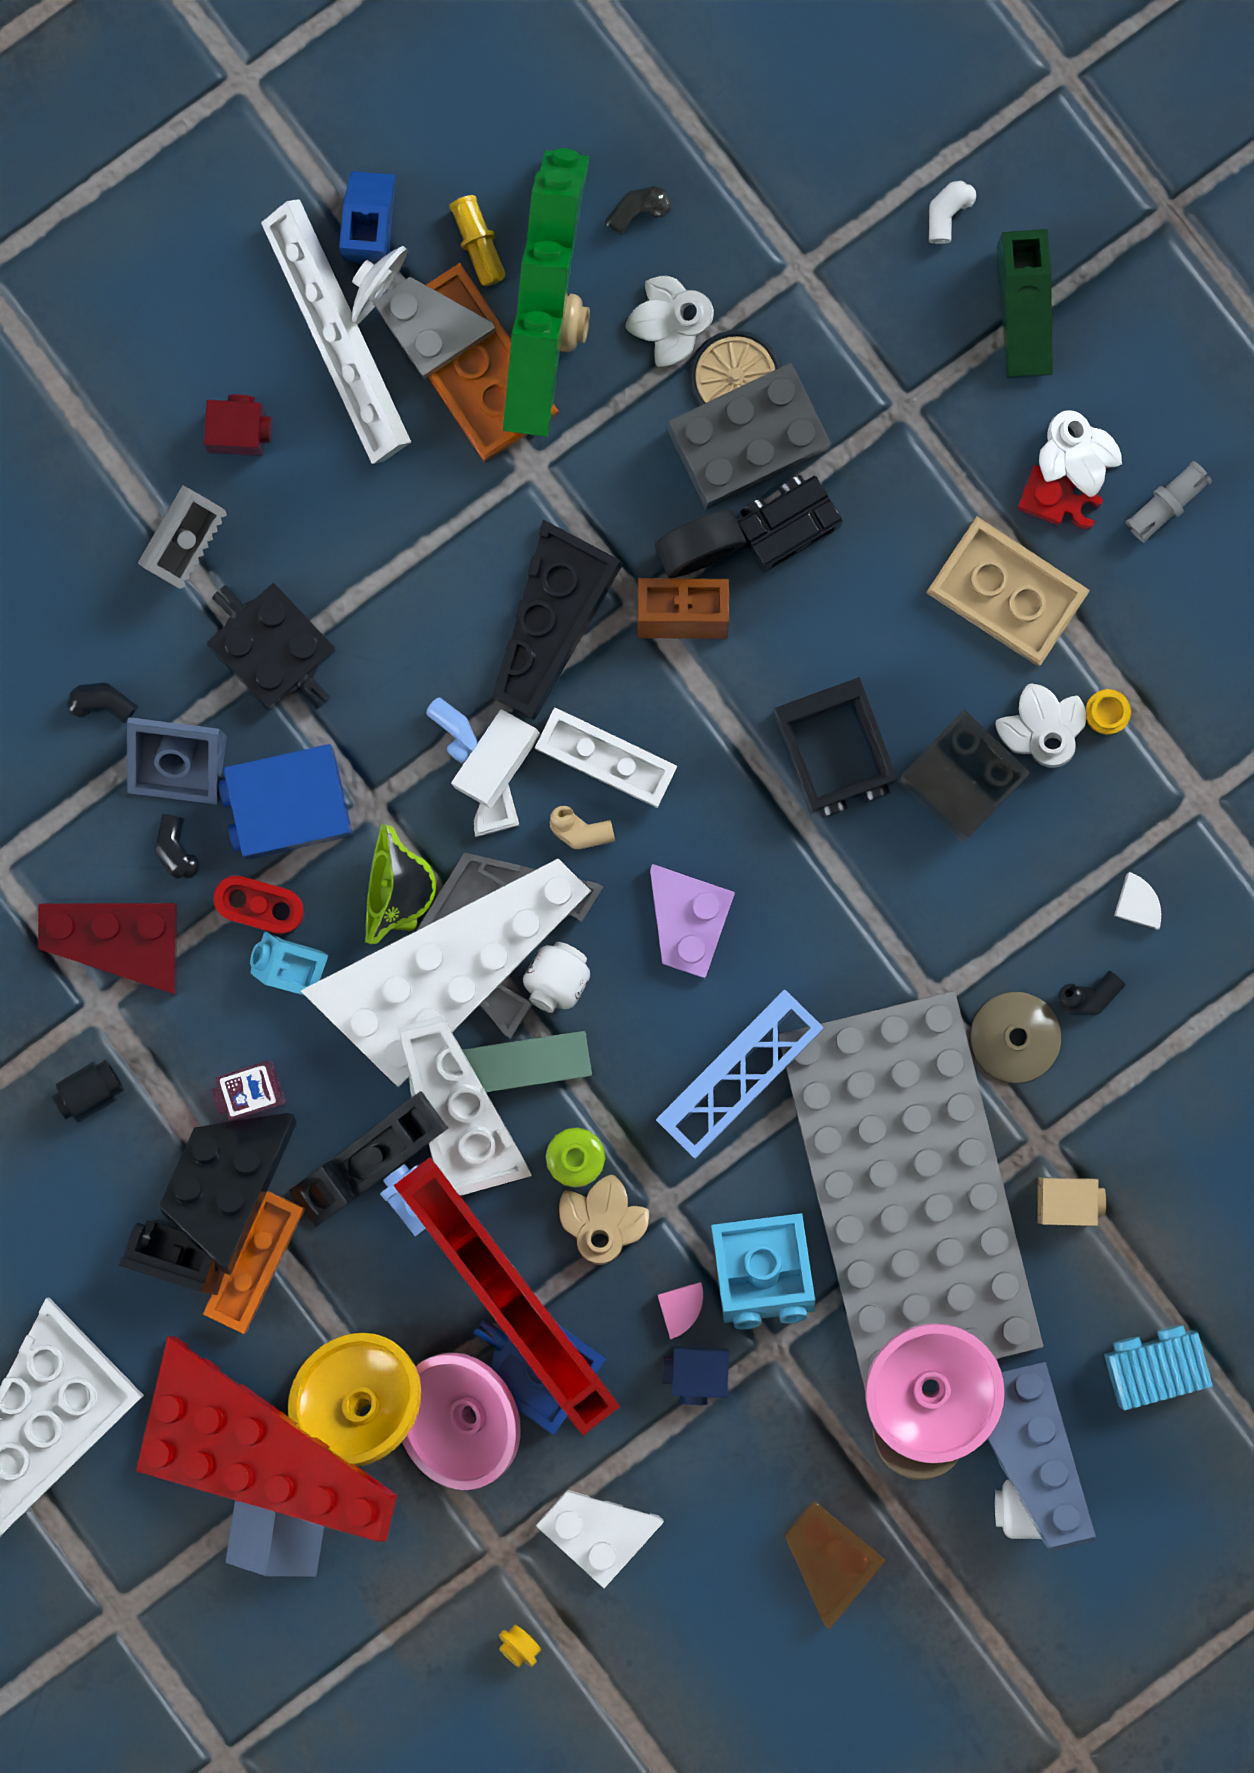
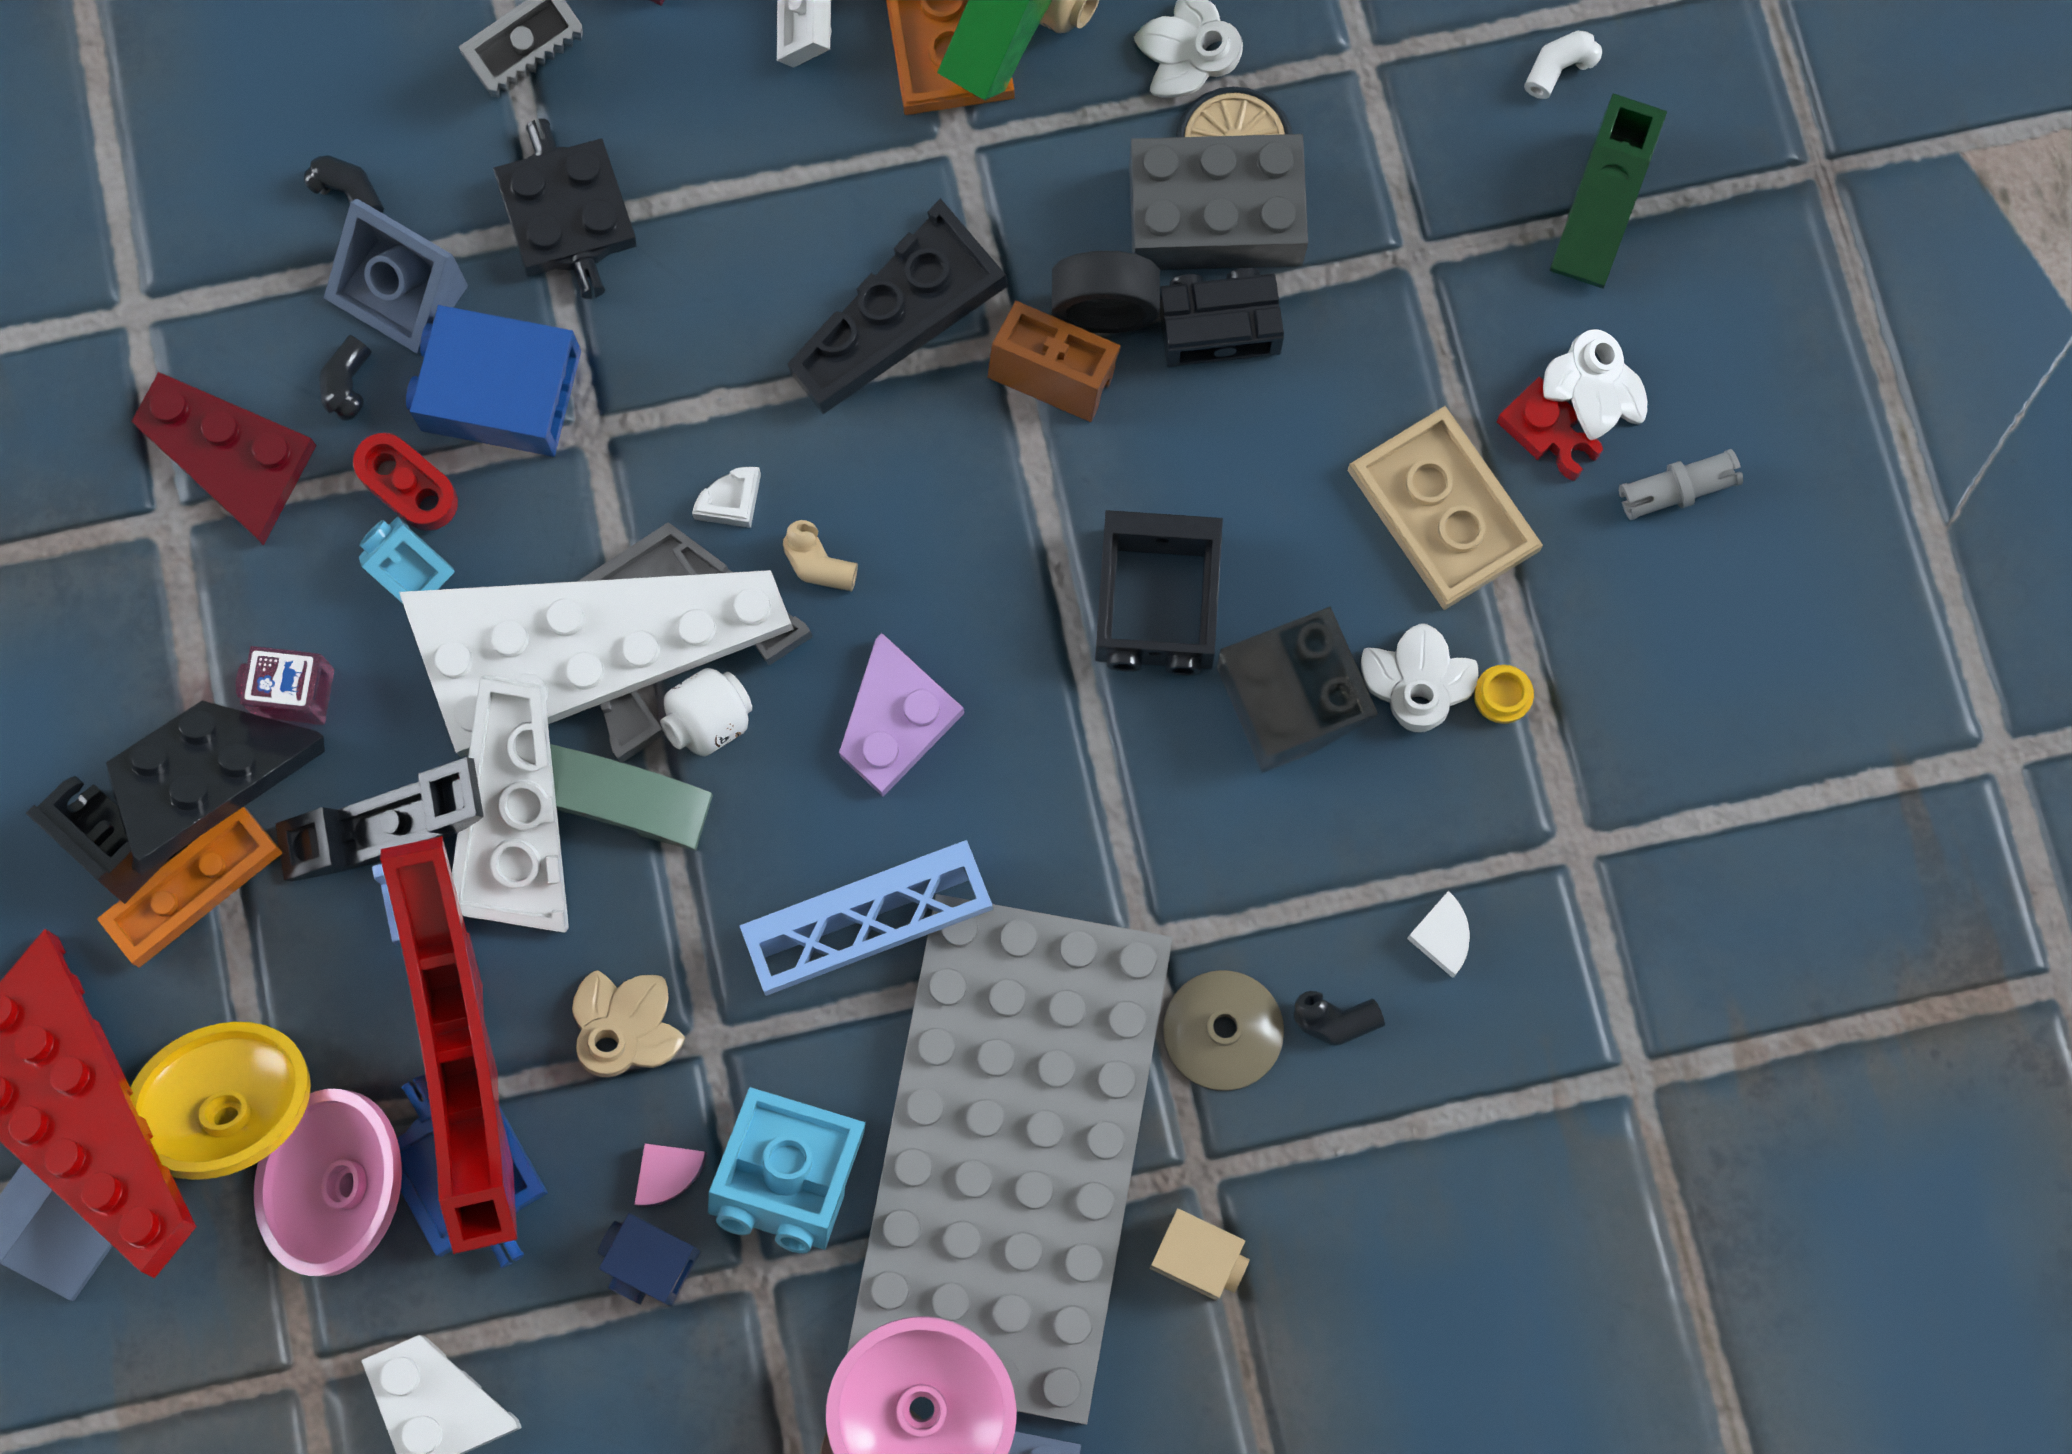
camera: 25 degrees right, 10 degrees down
(87, 1091) = (101, 603): black brick -> none
(398, 887) = (576, 531): hat -> none
(456, 725) = (732, 383): light blue arm -> none
(496, 758) = (757, 435): white tile -> none
(575, 1157) = (625, 930): lime head -> none
(605, 757) = (885, 490): white plate -> none

